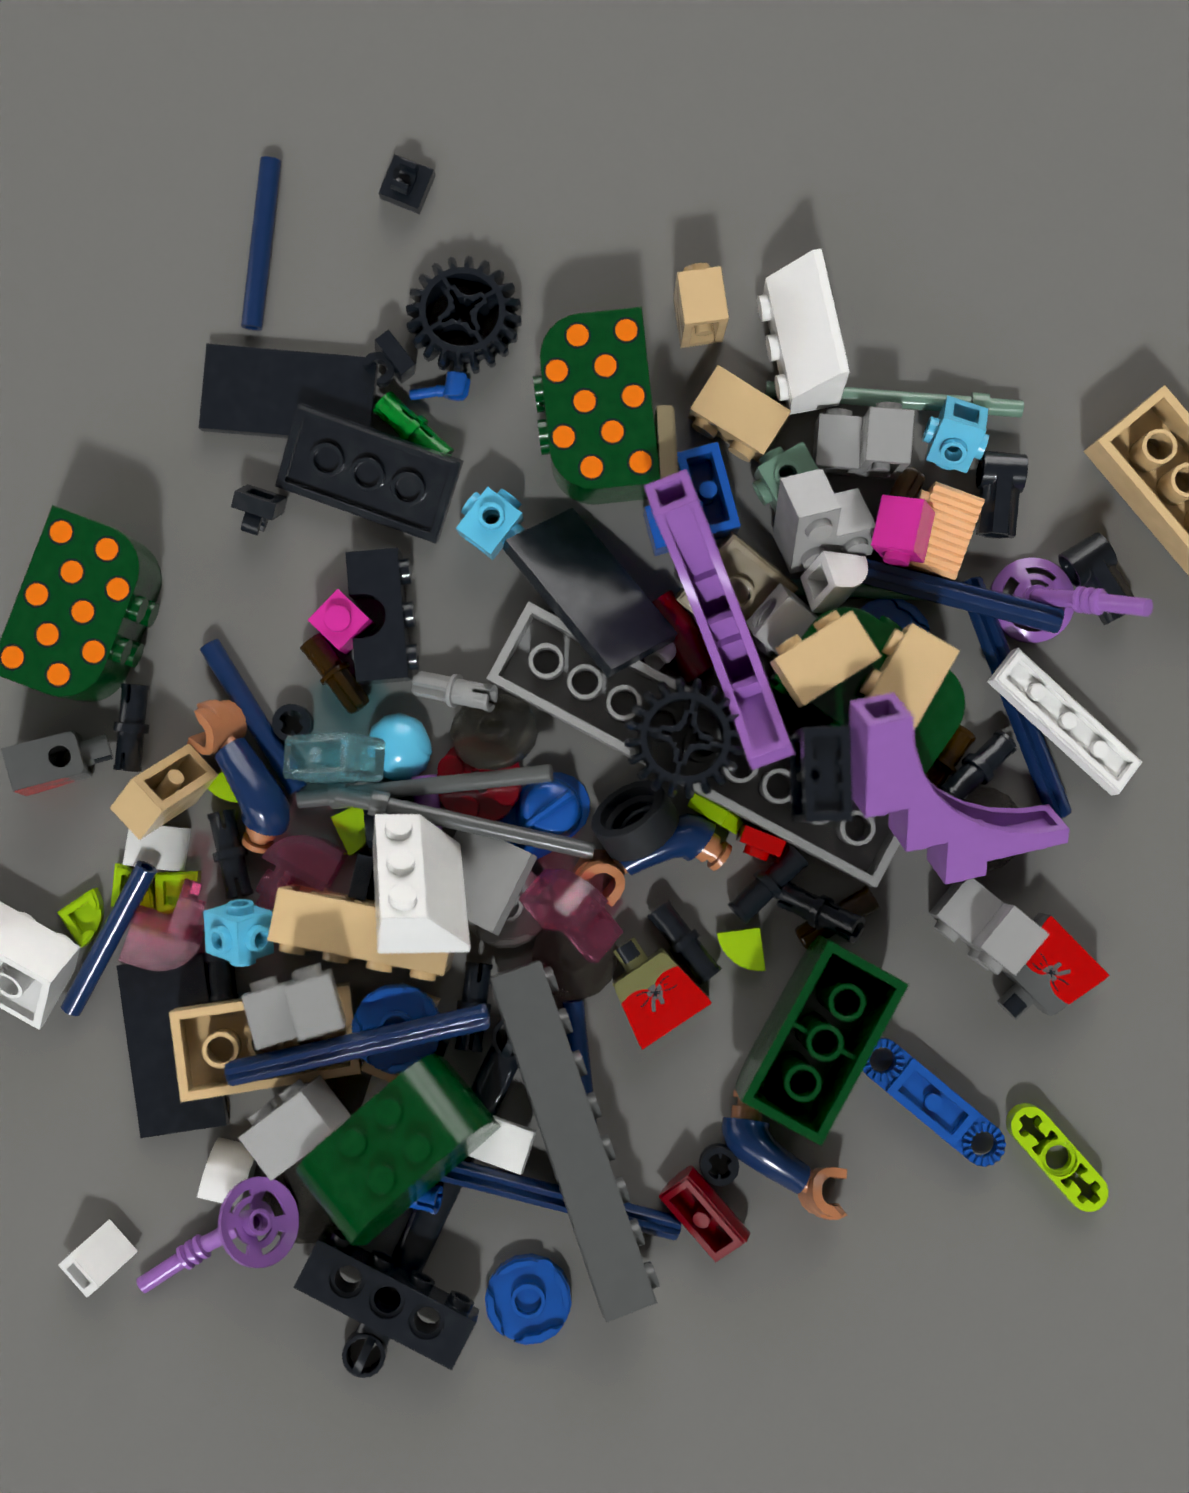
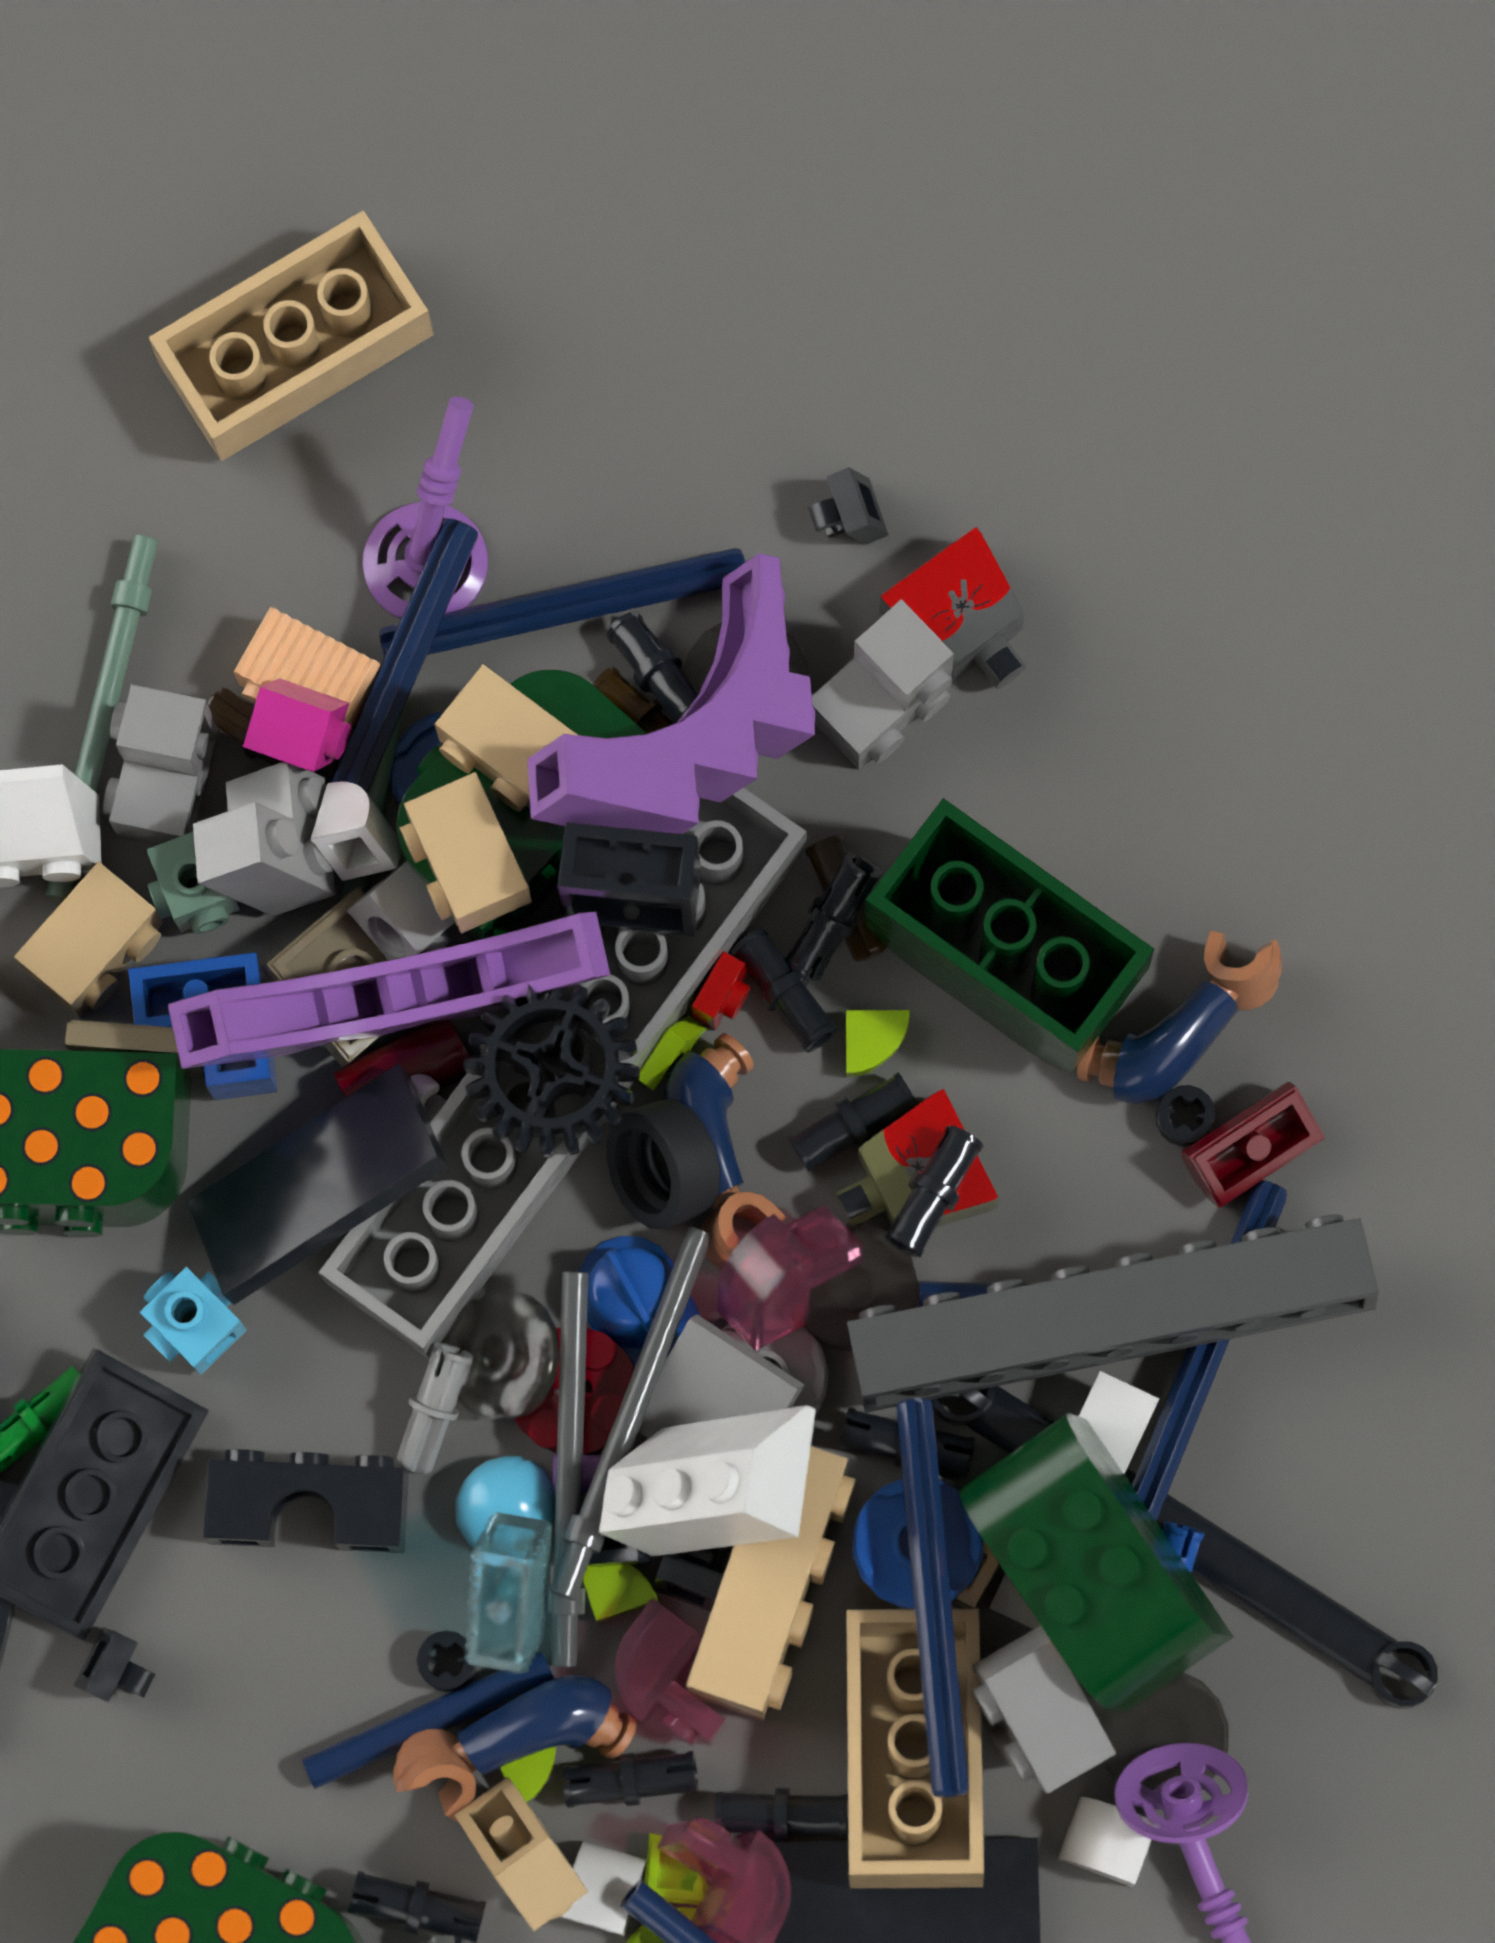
camera: 80 degrees left, 10 degrees down
(238, 932) = (747, 1766): medium azure brick -> none
(293, 1008) = (865, 1674): light grey brick -> none
(335, 673) = (382, 1586): dark brown axle -> none
(341, 621) = (305, 1562): dark pink brick -> none
(398, 1320) = (1388, 1543): black brick -> none
(528, 1299) = (1351, 1421): blue tile -> none
(638, 1007) = (933, 1191): none -> black pin
(935, 1104) = (1134, 795): blue plate -> none
(956, 435) = (170, 633): medium azure brick -> none
(1000, 482) = (247, 582): black piece -> none
(1064, 721) = (607, 540): white tile -> none
(1085, 1172) = (1261, 597): lime beam -> none
(1094, 565) = (390, 469): black piece -> none
(1109, 884) = (851, 509): none -> black tile

